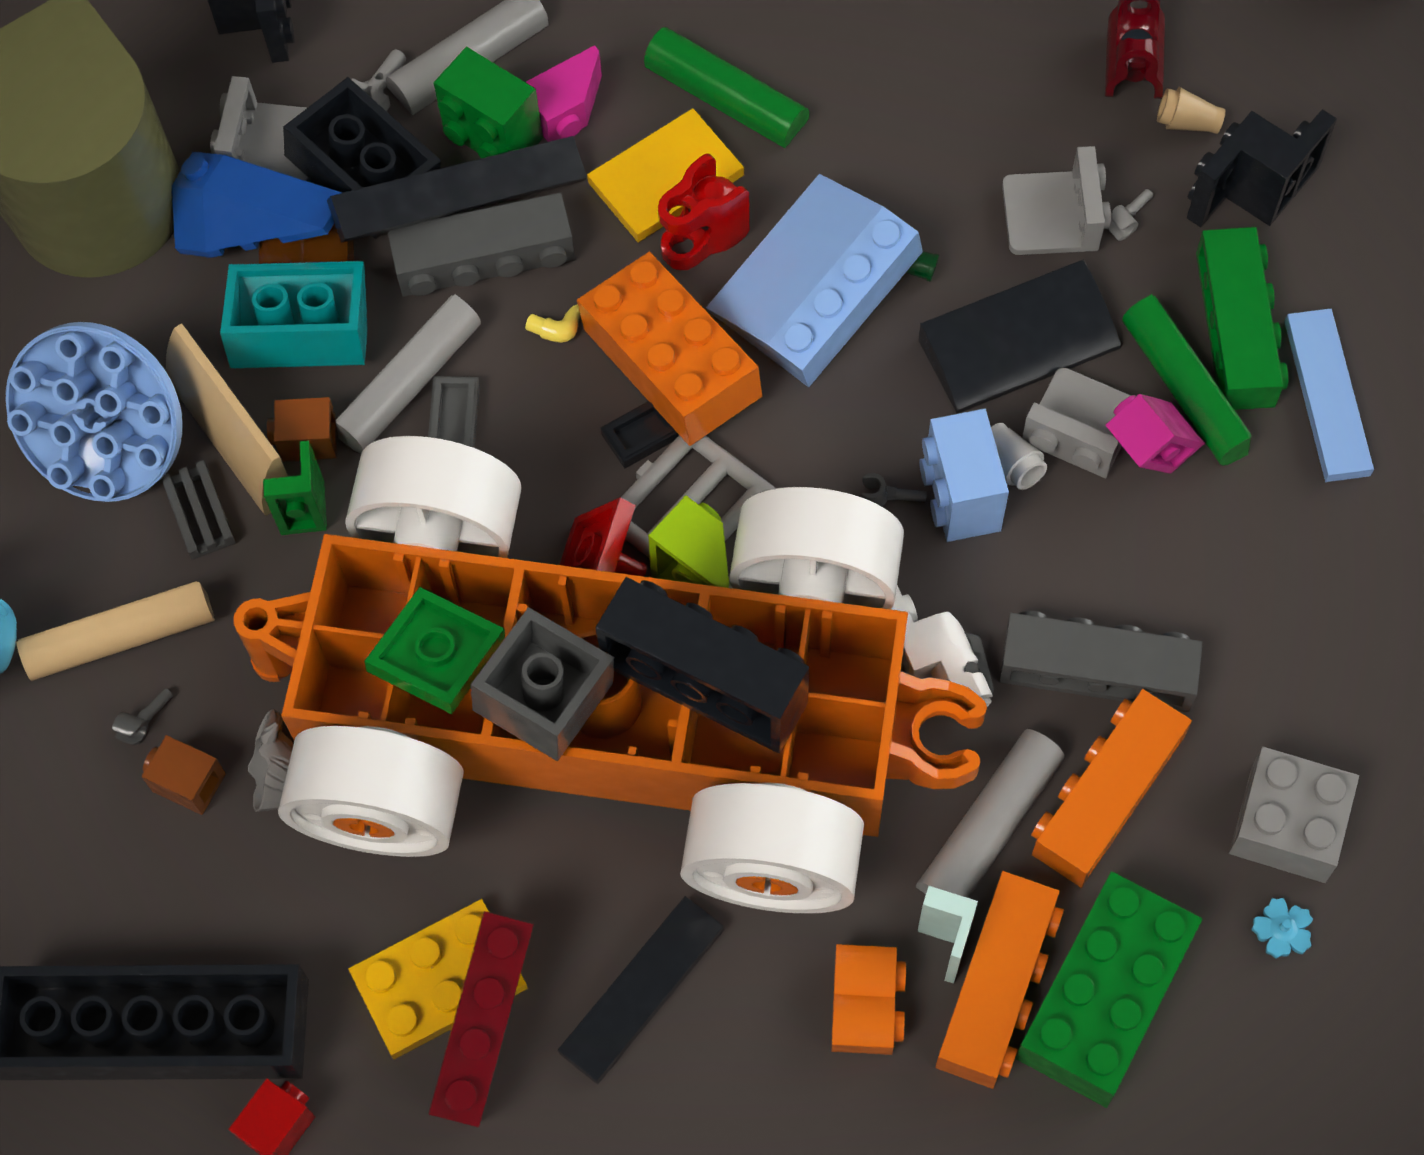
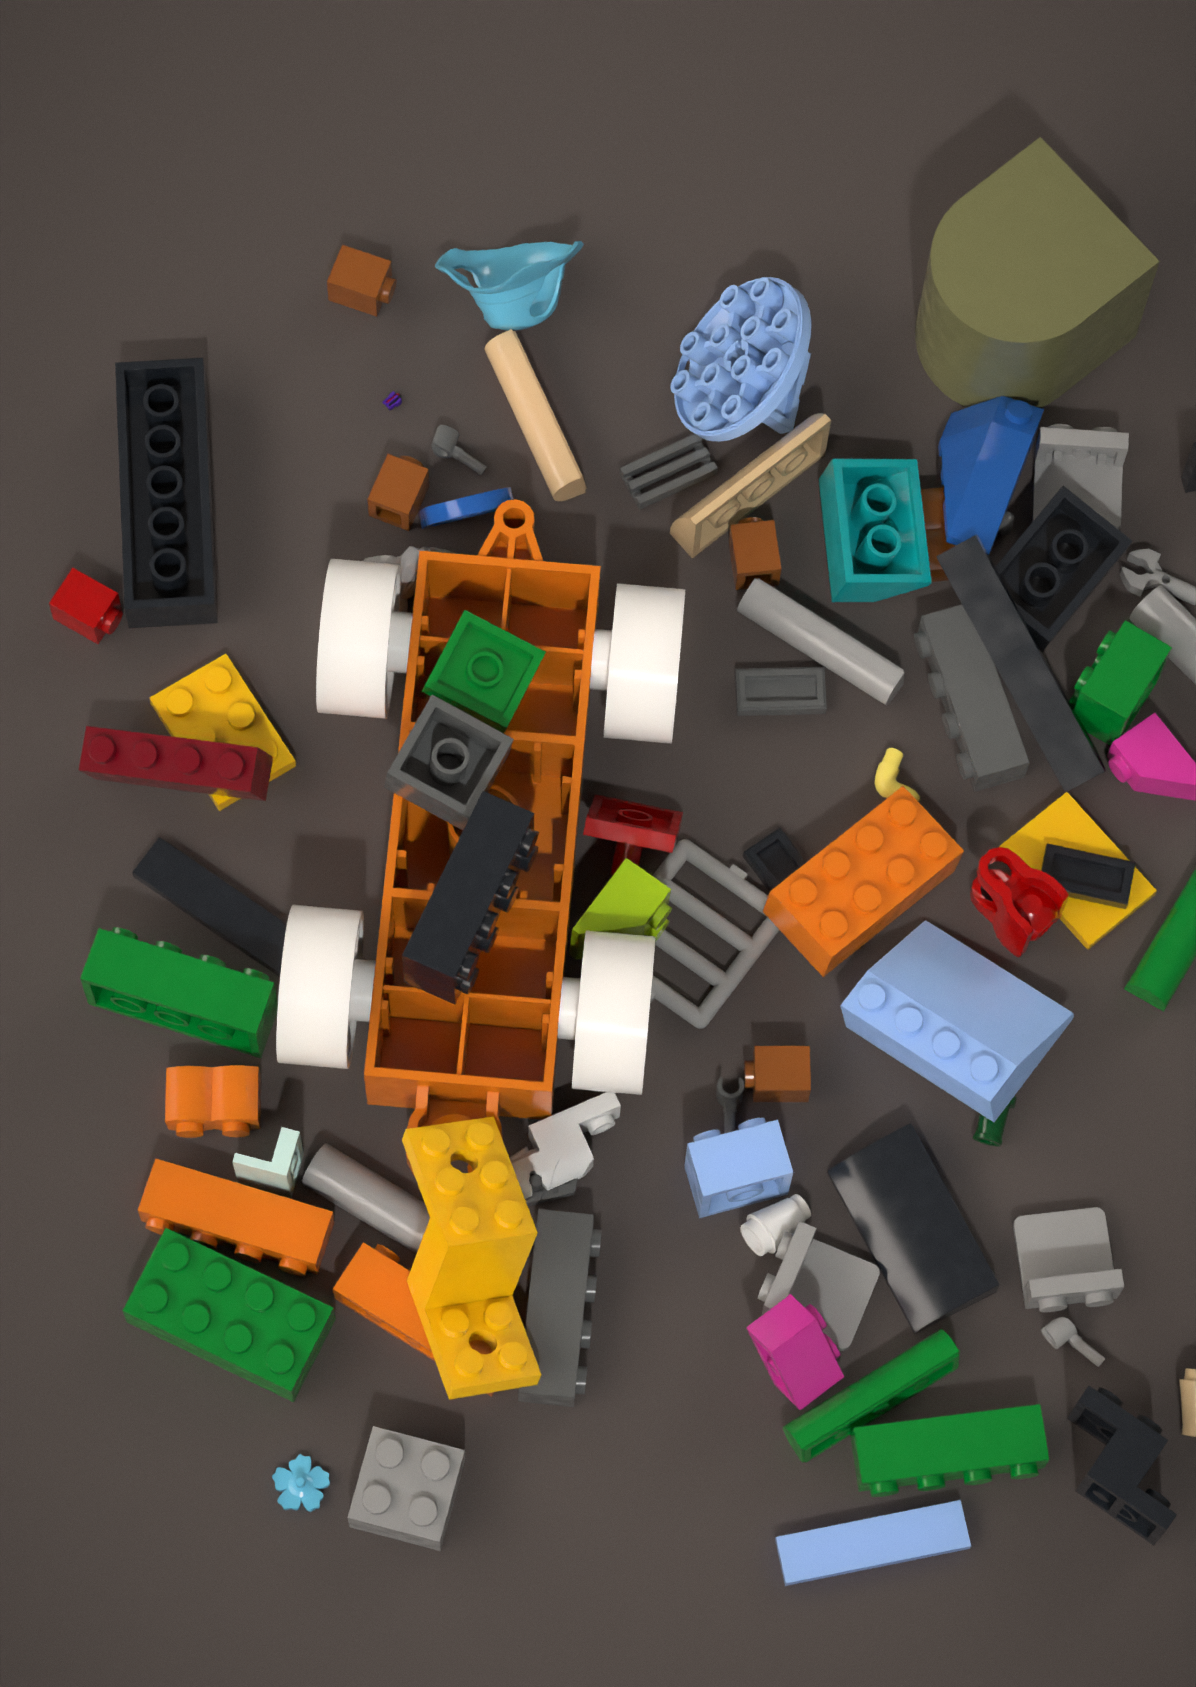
camera: 80 degrees right, 5 degrees up
(71, 782) = (393, 400): none -> dark purple piece
(221, 692) = (464, 507): none -> blue tile
(298, 500) = (678, 564): green panel -> none
(677, 149) = (1090, 875): none -> black tile
(749, 1022) = (180, 991): none -> green brick
(861, 439) = (779, 1074): none -> dark orange brick
(1049, 691) = (471, 1257): none -> yellow bracket

